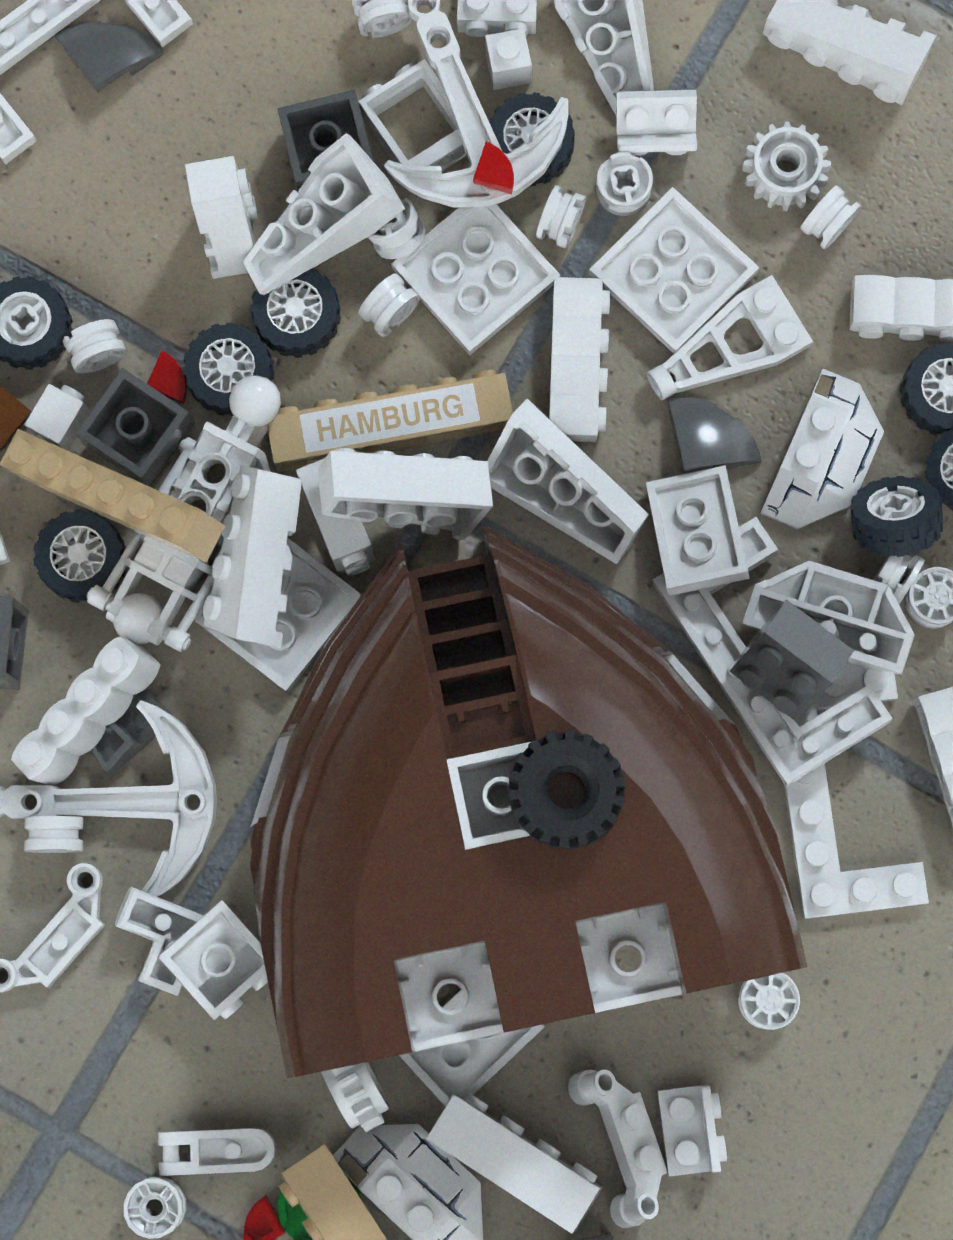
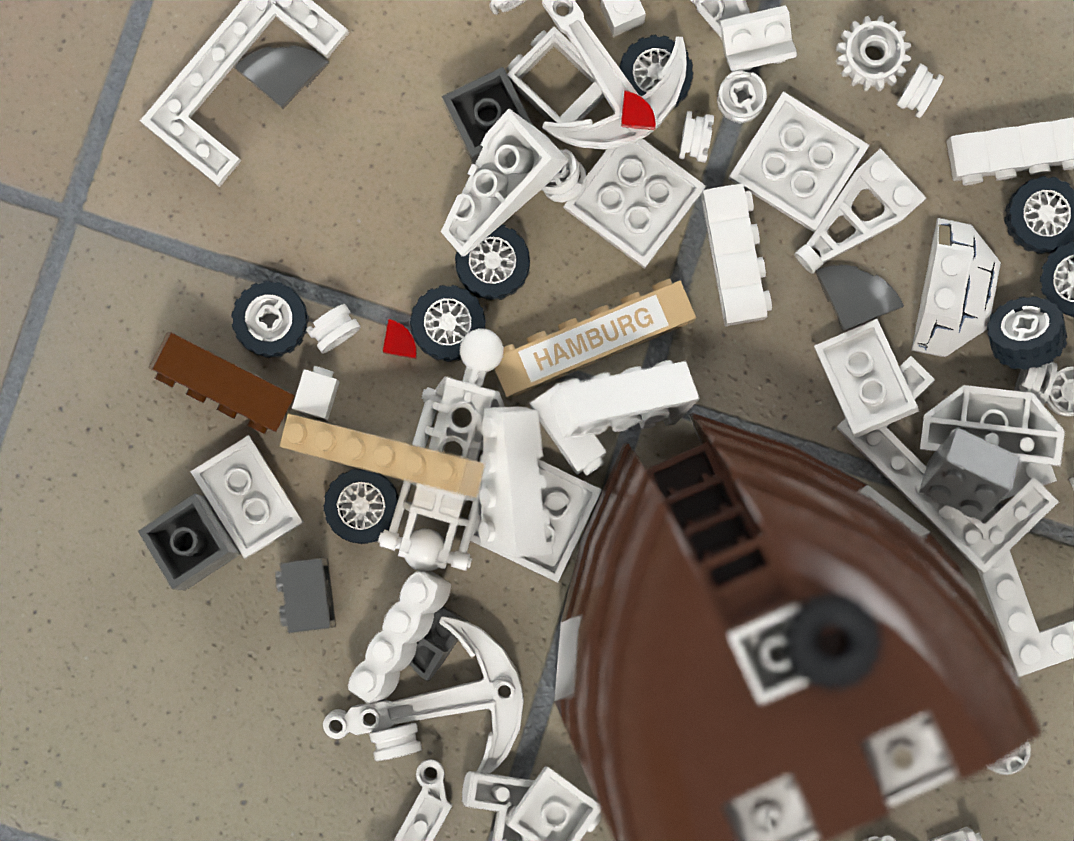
camera: 15 degrees left, 5 degrees up
(135, 427) = (384, 390): dark grey brick -> none
(223, 213) = (416, 193): white wedge -> none
(389, 304) = (570, 242): white wheel -> none
(562, 485) = (748, 365): white wedge -> none

